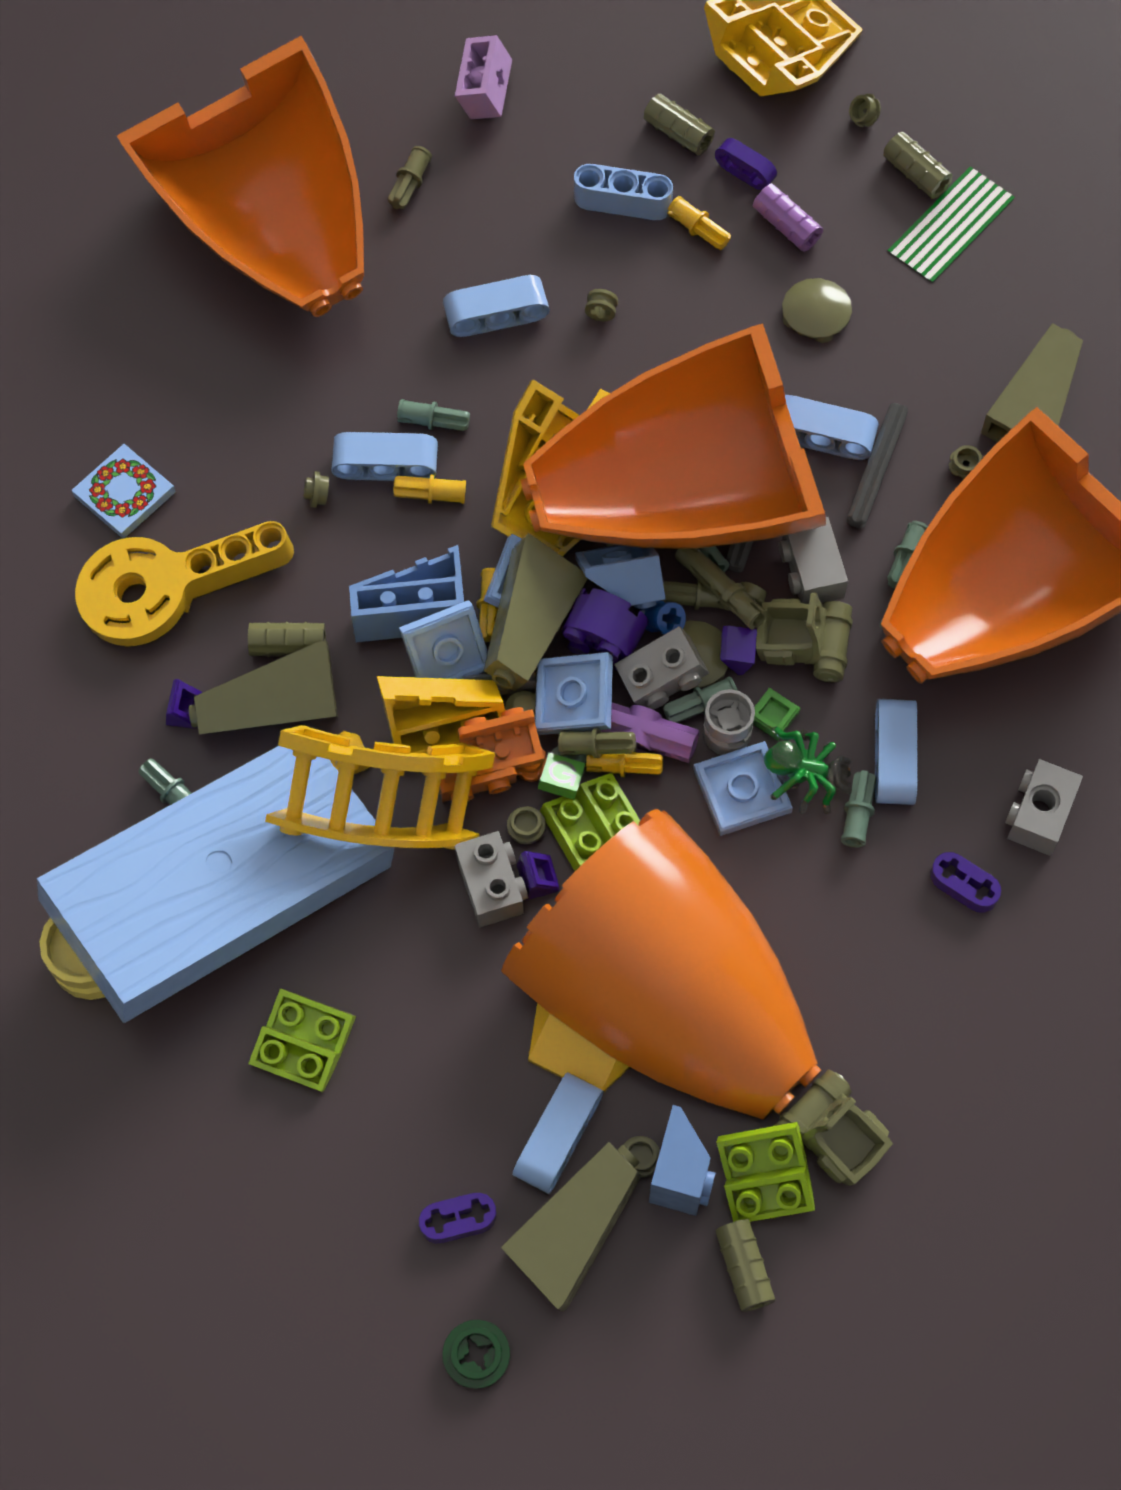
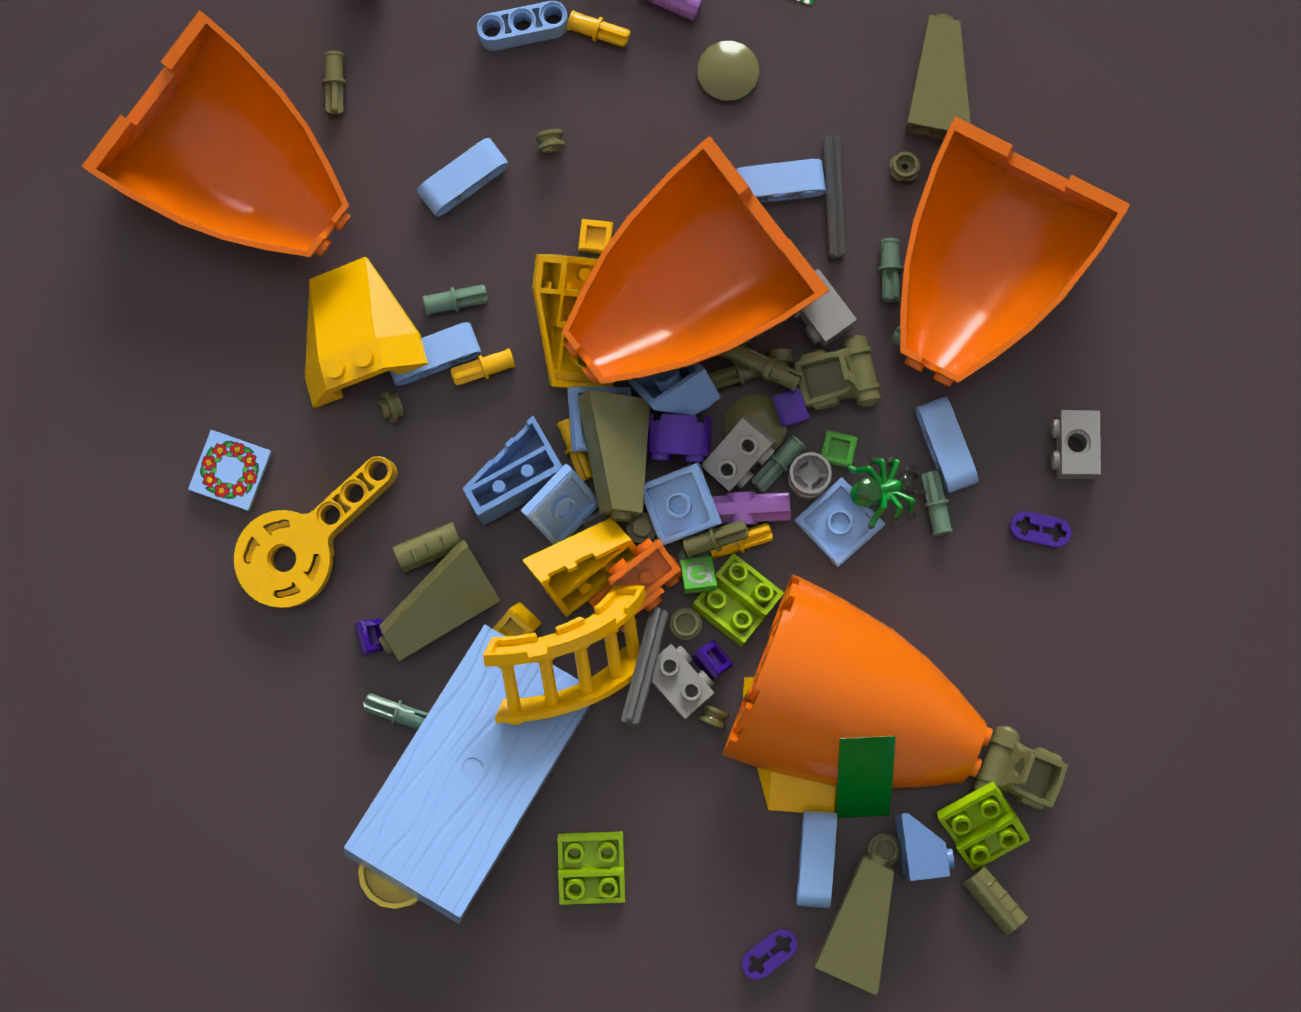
camera: 25 degrees left, 15 degrees up
(316, 398) = (355, 332): none -> yellow wedge
(456, 839) = (644, 667): none -> dark grey axle
(510, 931) = (713, 716): none -> olive bush
(650, 1051) = (865, 776): none -> green sticker
(664, 617) = (725, 408): blue bush -> none

